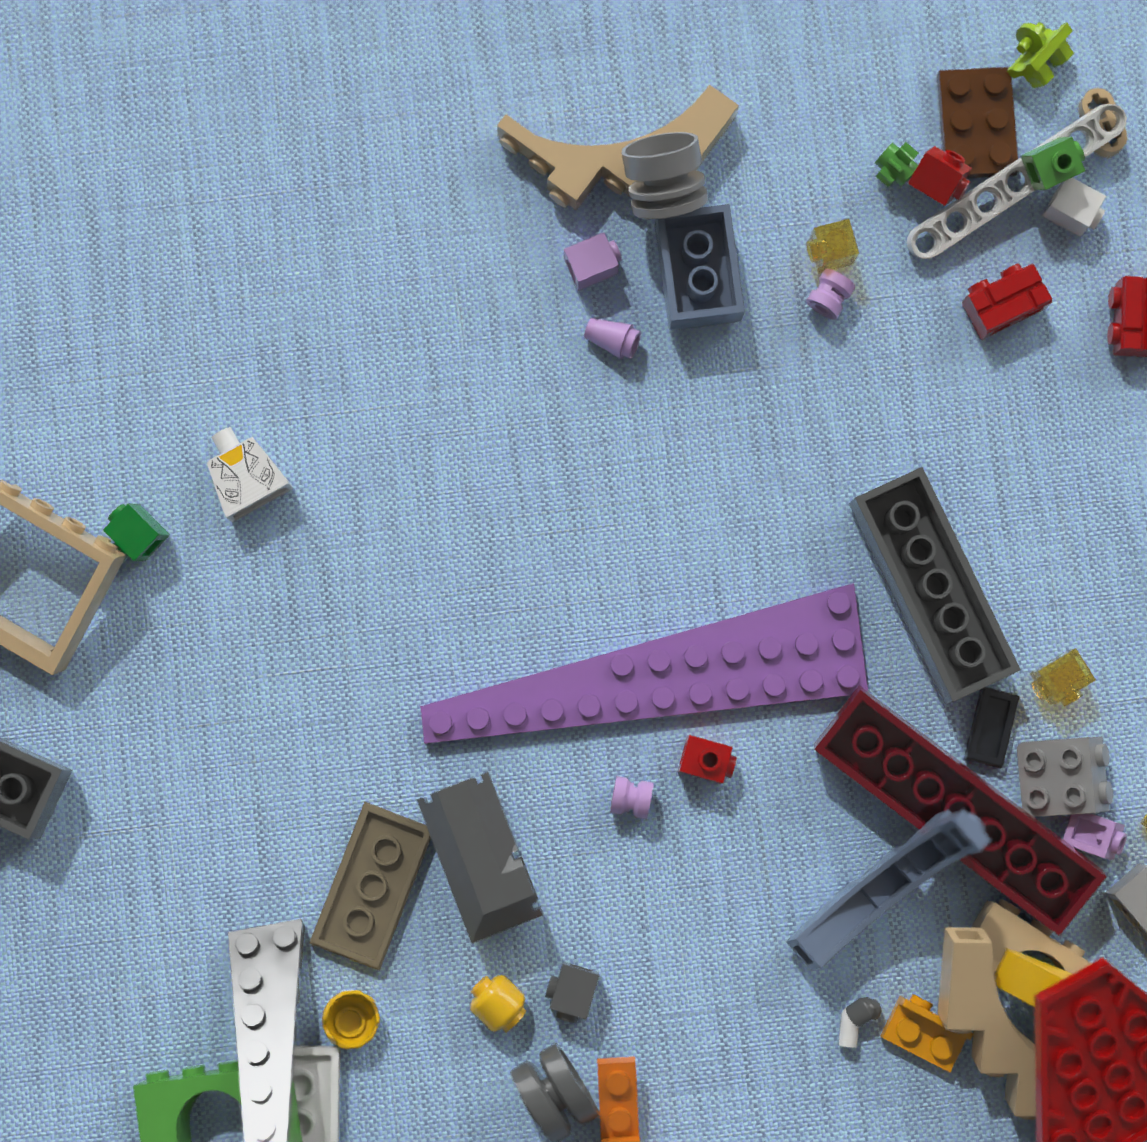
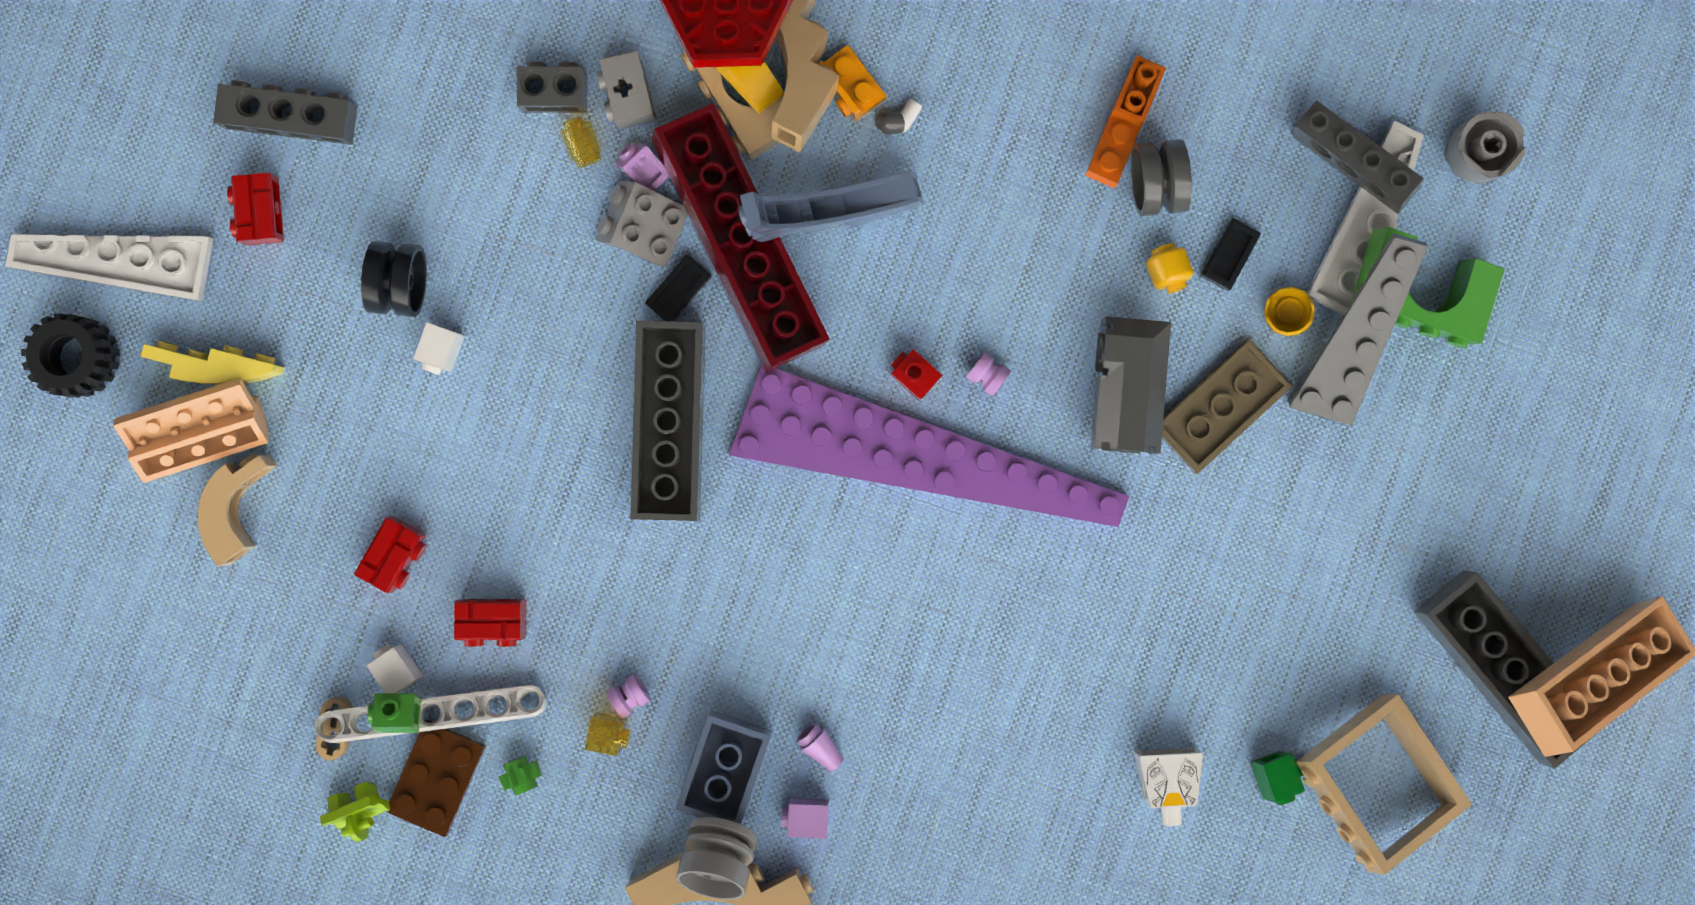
camera: 150 degrees left, 5 degrees up
(439, 1051) = (1230, 254): none -> black tile
(572, 992) = (1108, 248): dark grey brick -> none
(941, 175) = (490, 748): red brick -> none
(1062, 678) = (604, 299): clear yellow brick -> none

